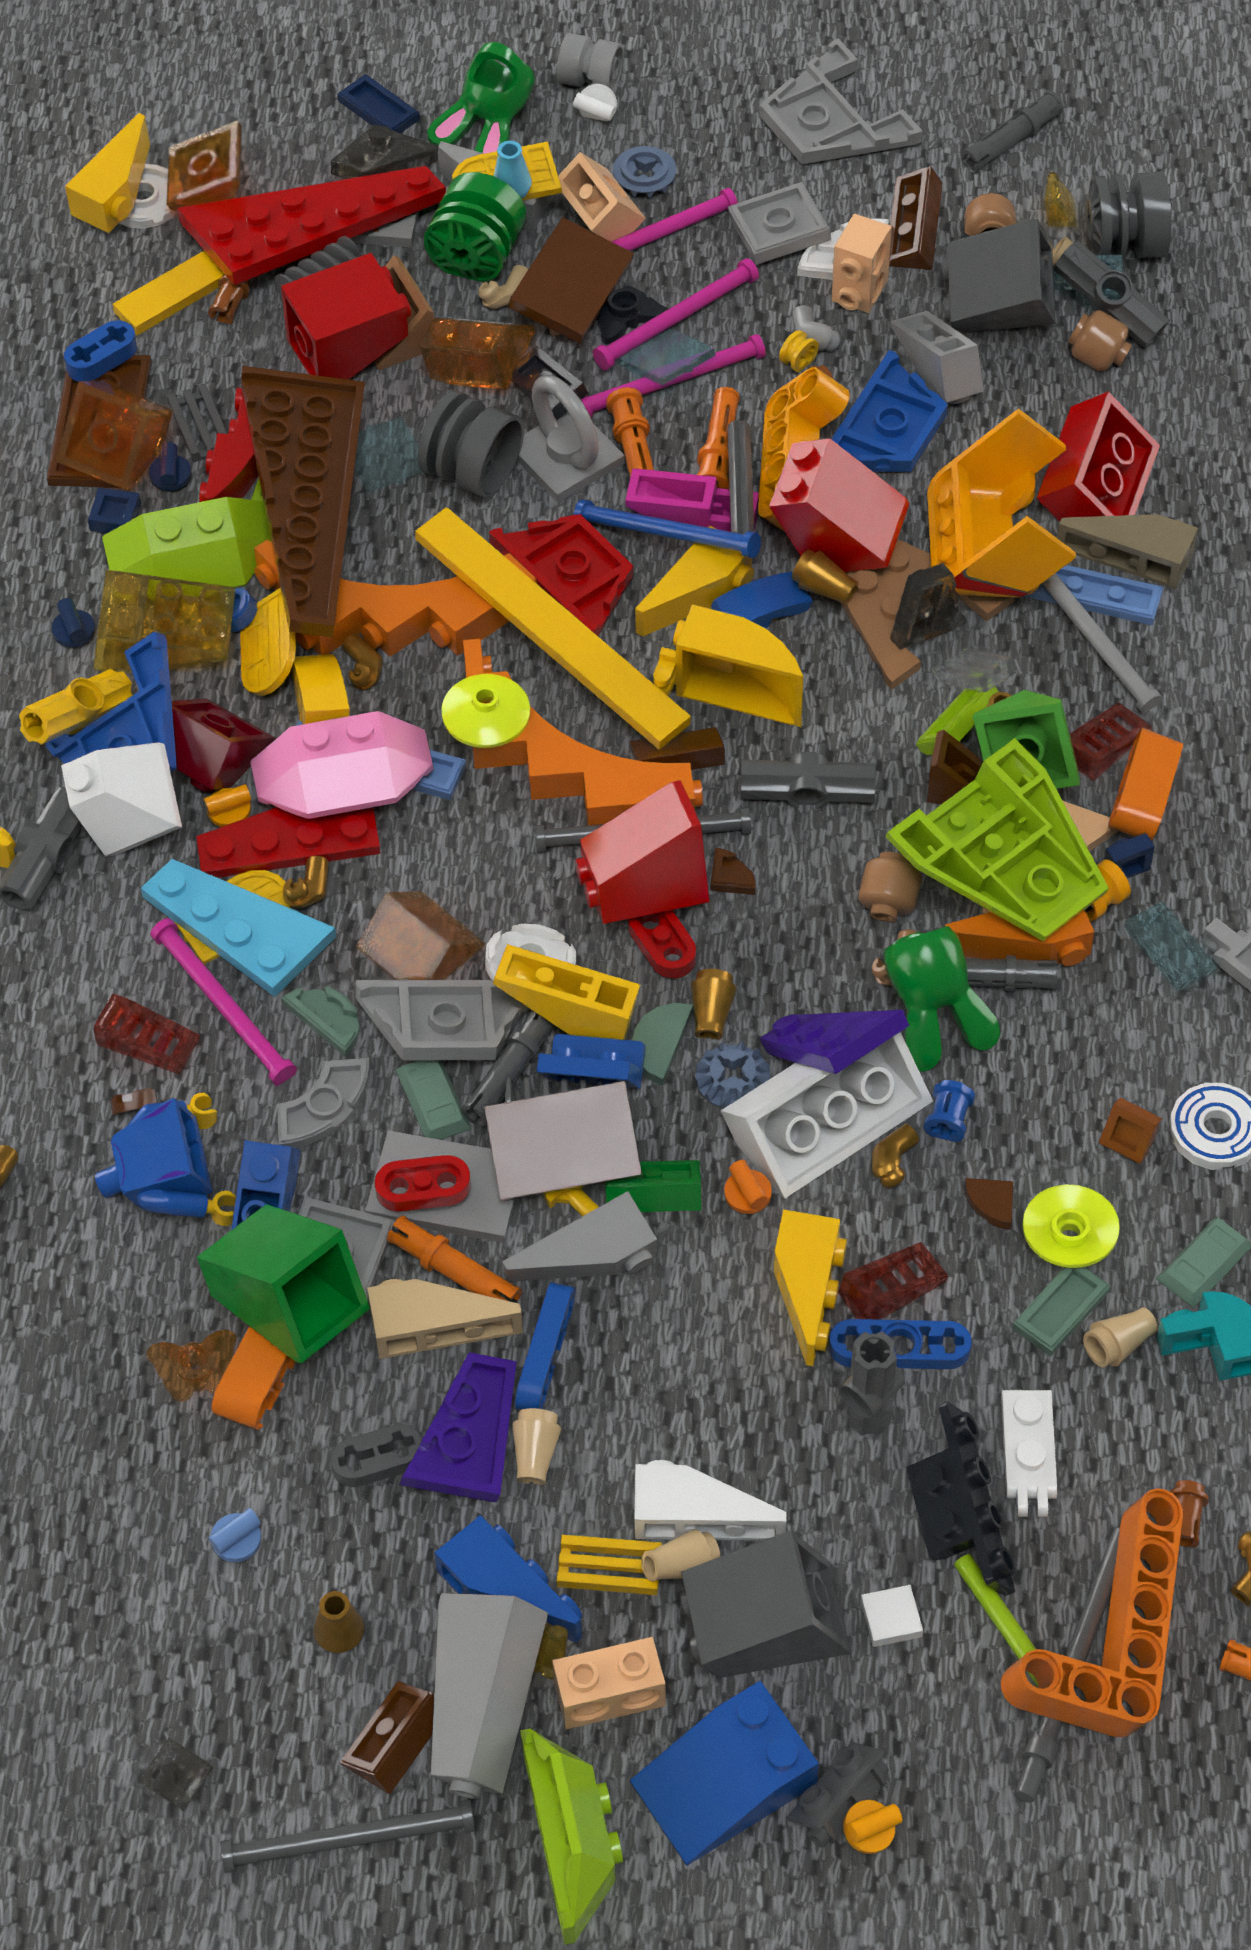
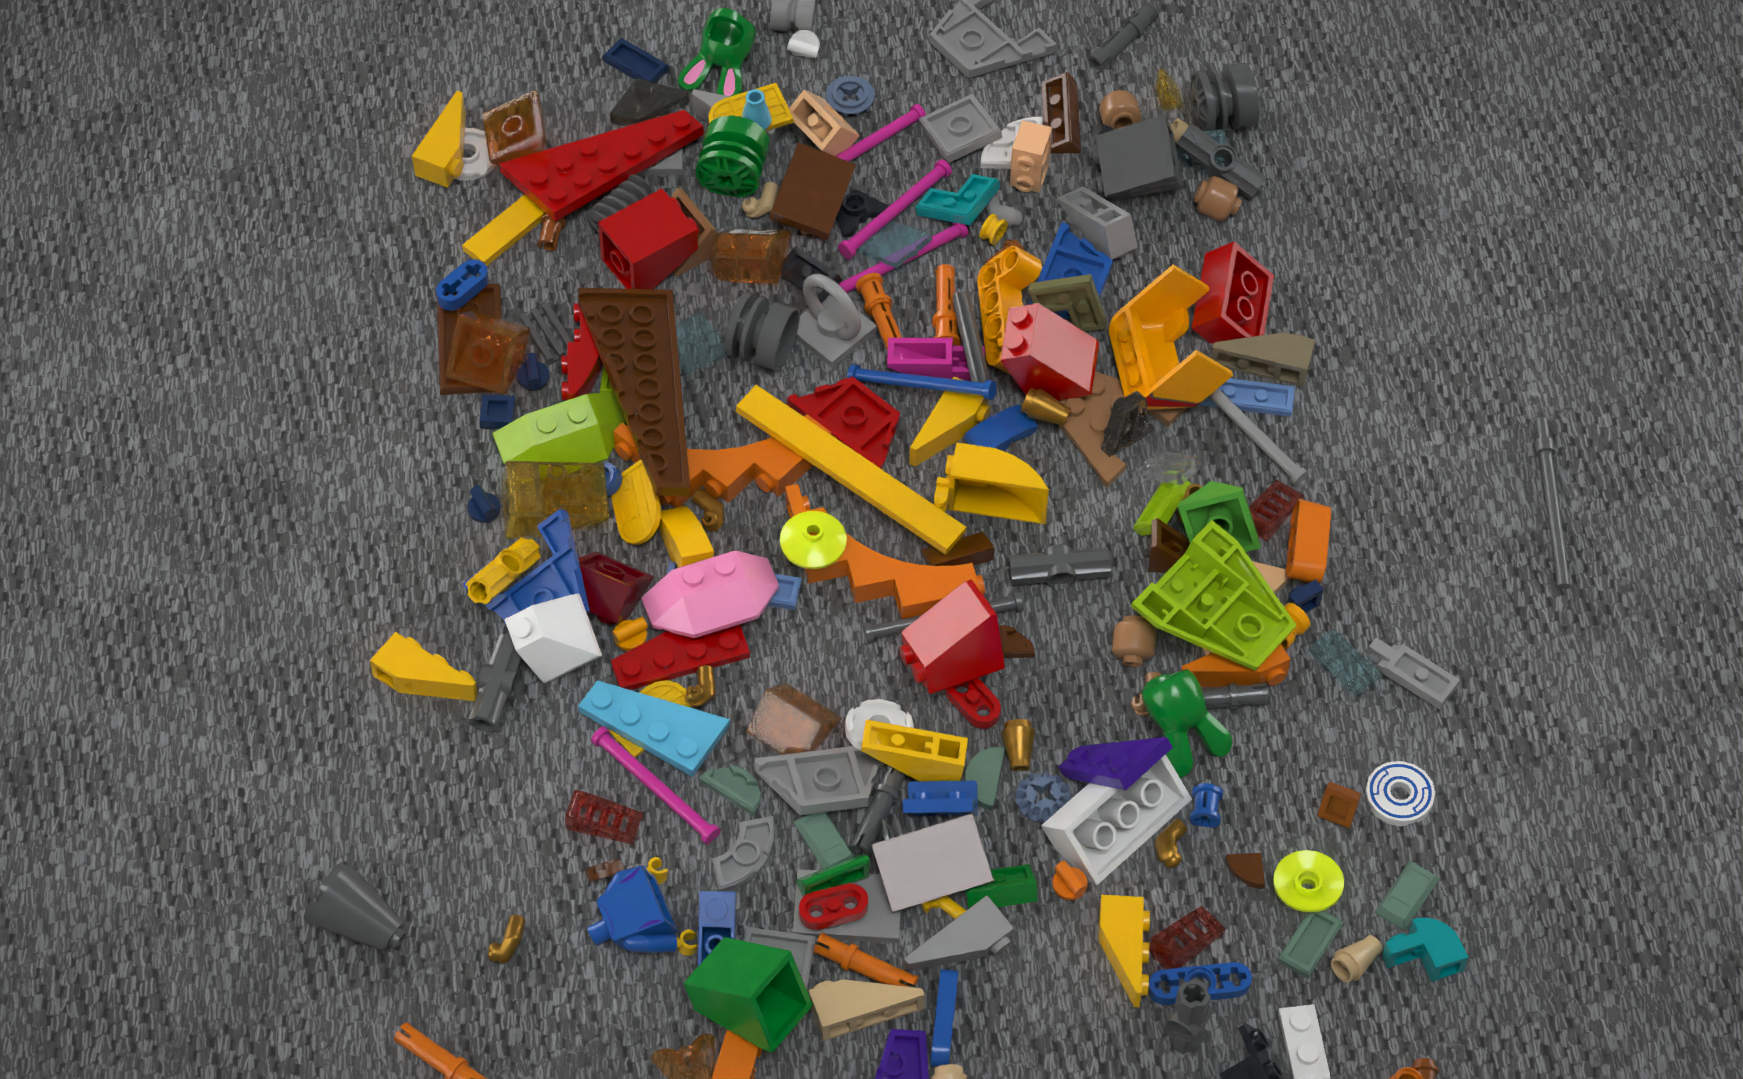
camera: 10 degrees left, 0 degrees up
(451, 1140) = (841, 873): none -> green slope
(762, 317) = (960, 206): none -> teal tile
(888, 439) = (1072, 294): none -> olive tile

